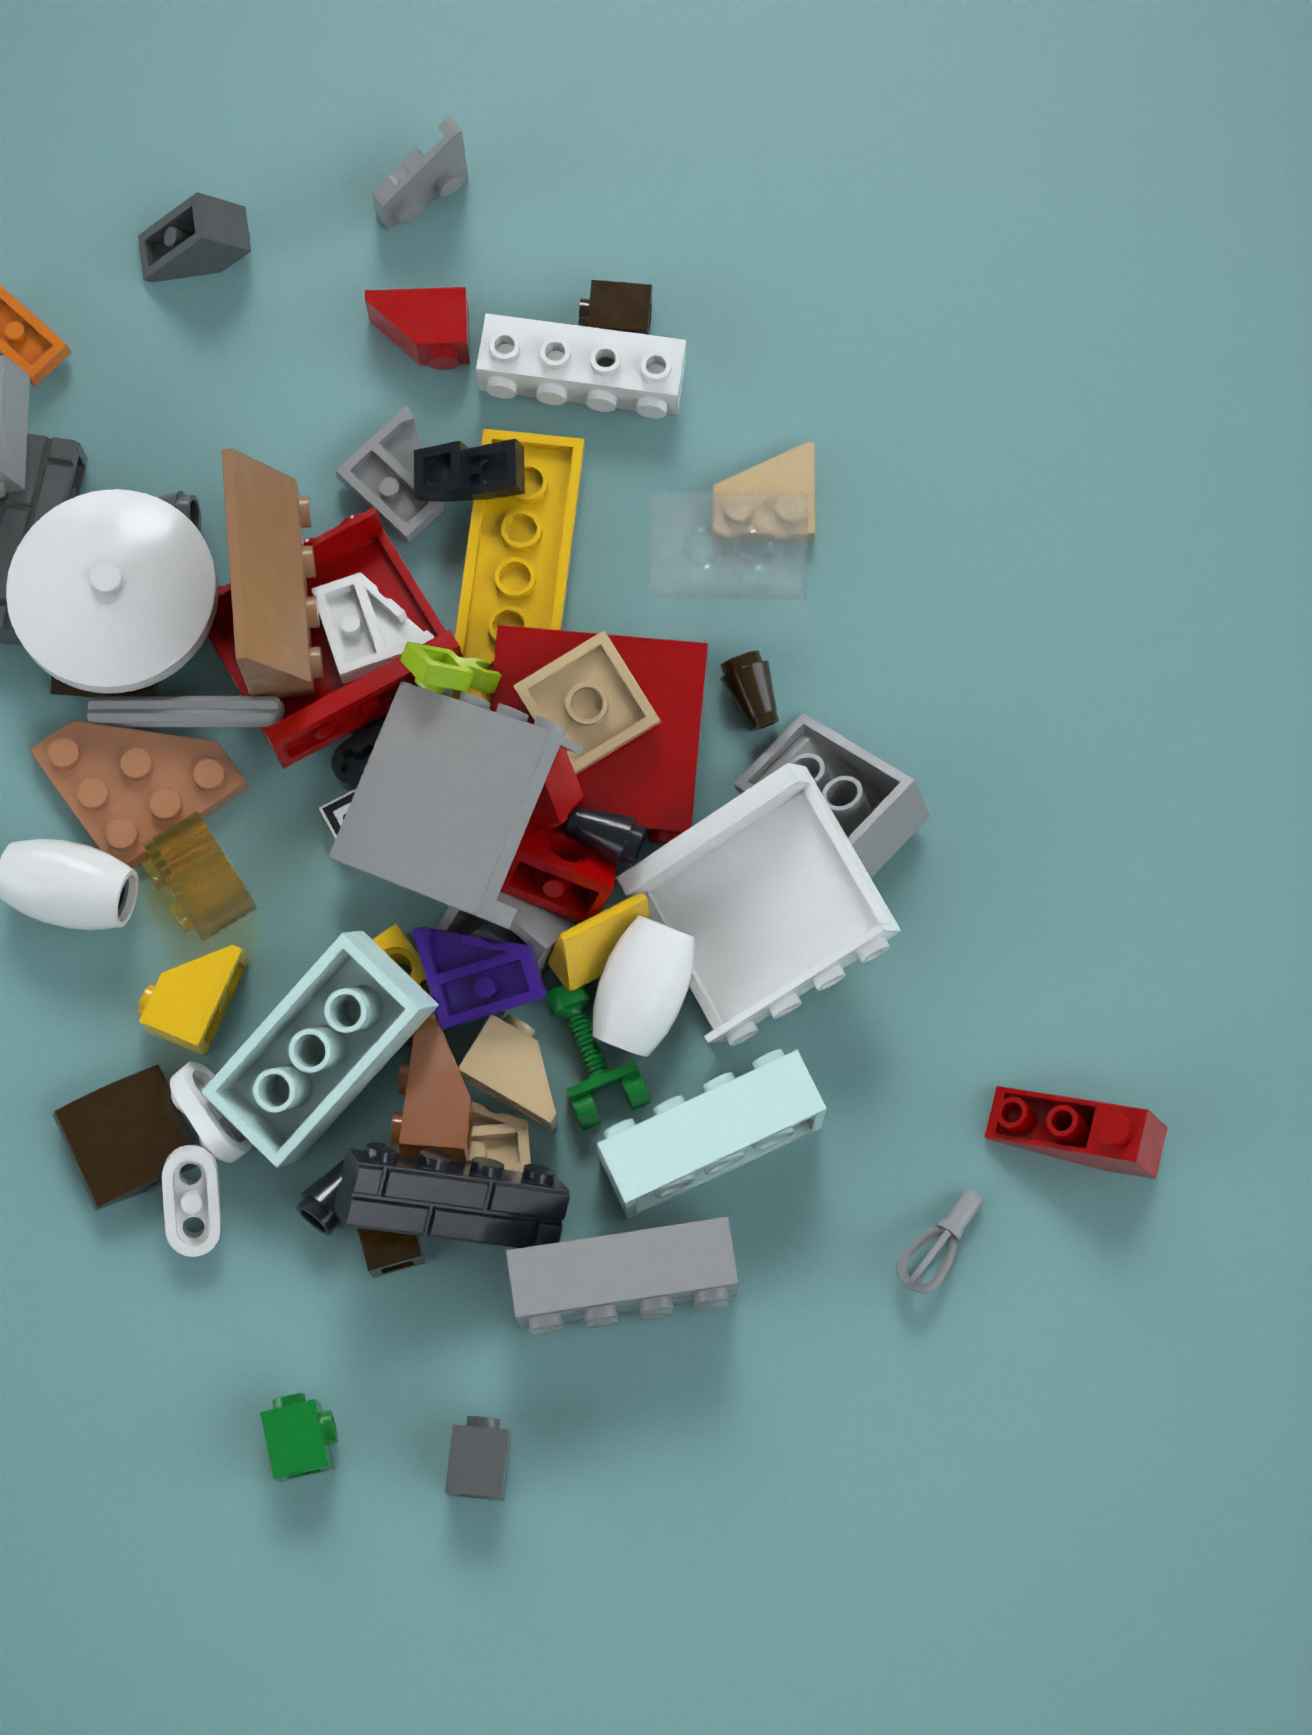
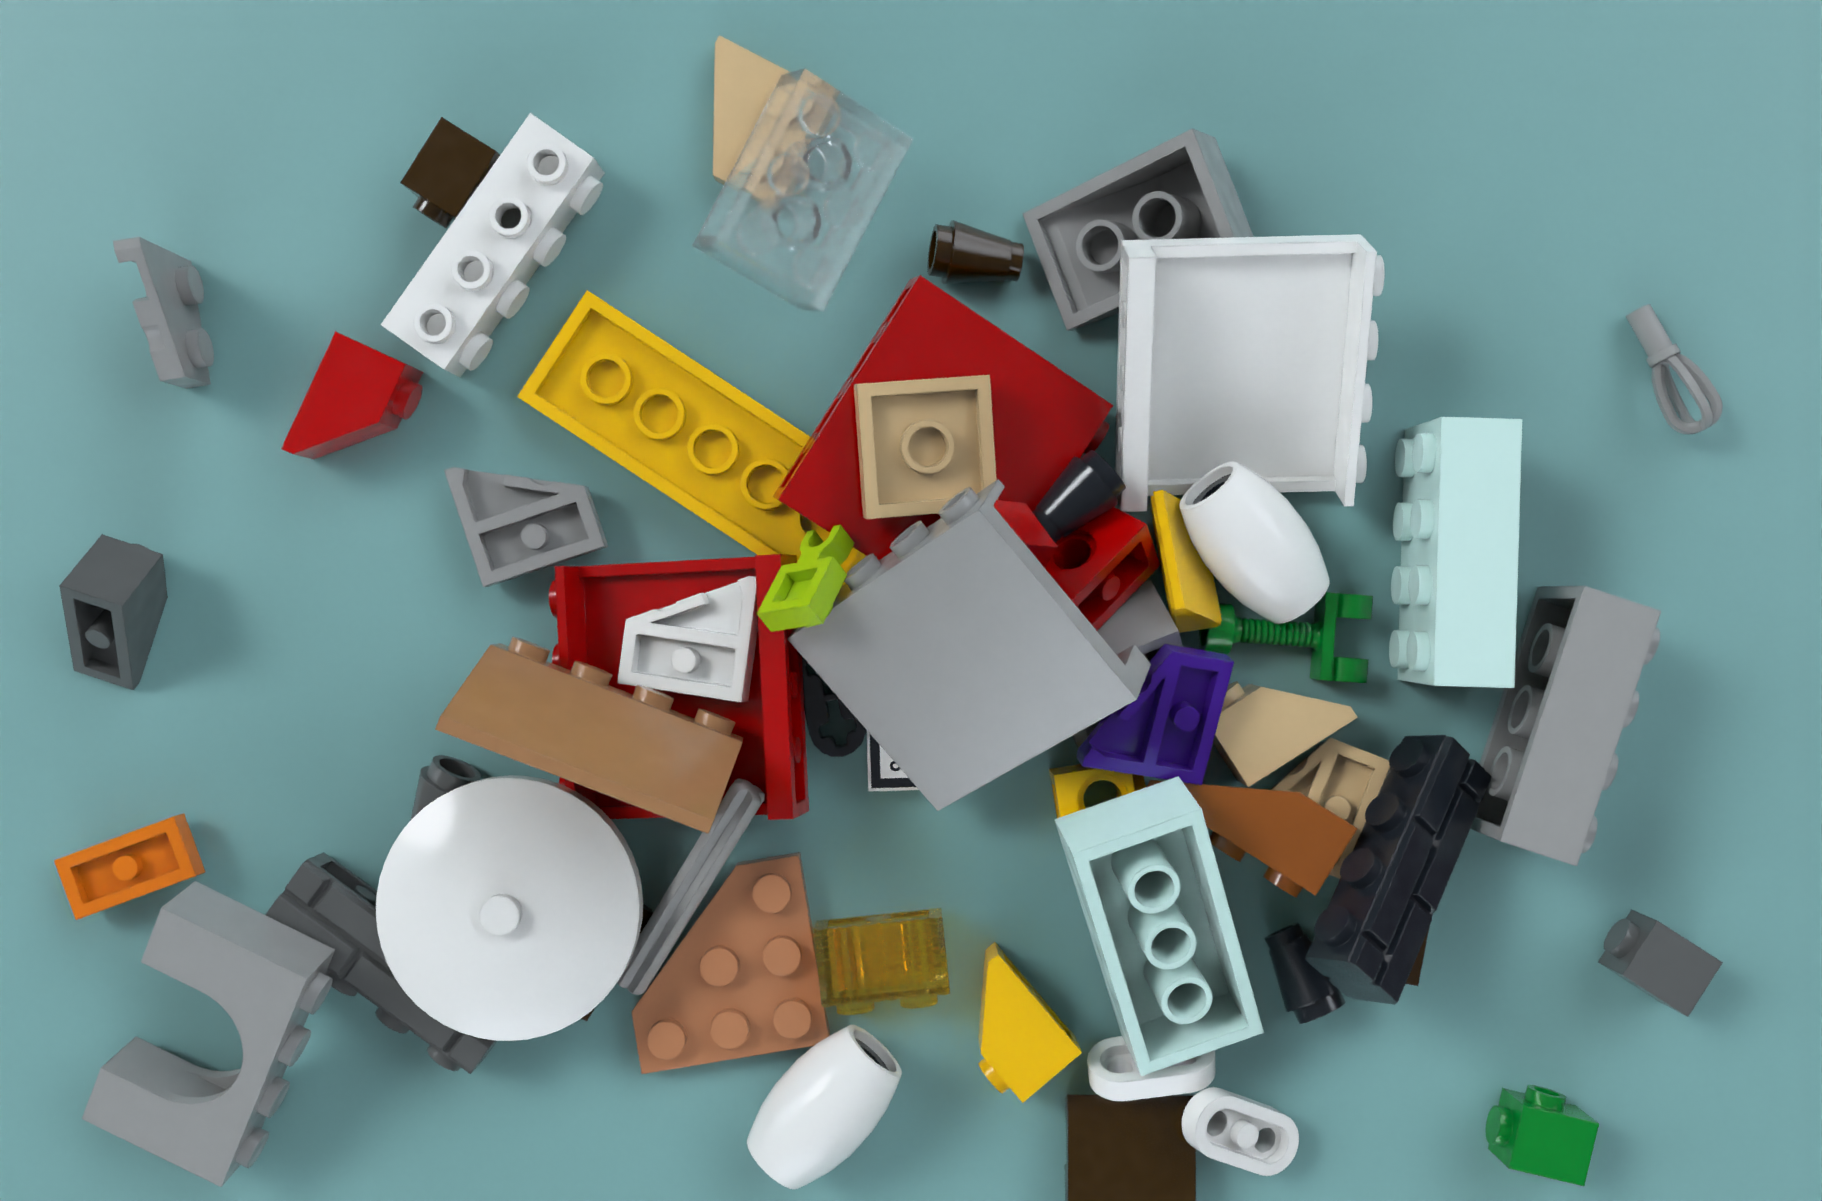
camera: 65 degrees left, 15 degrees up
(468, 474) = (565, 438): black slope -> none
(1078, 1130) = (1632, 167): red slope -> none

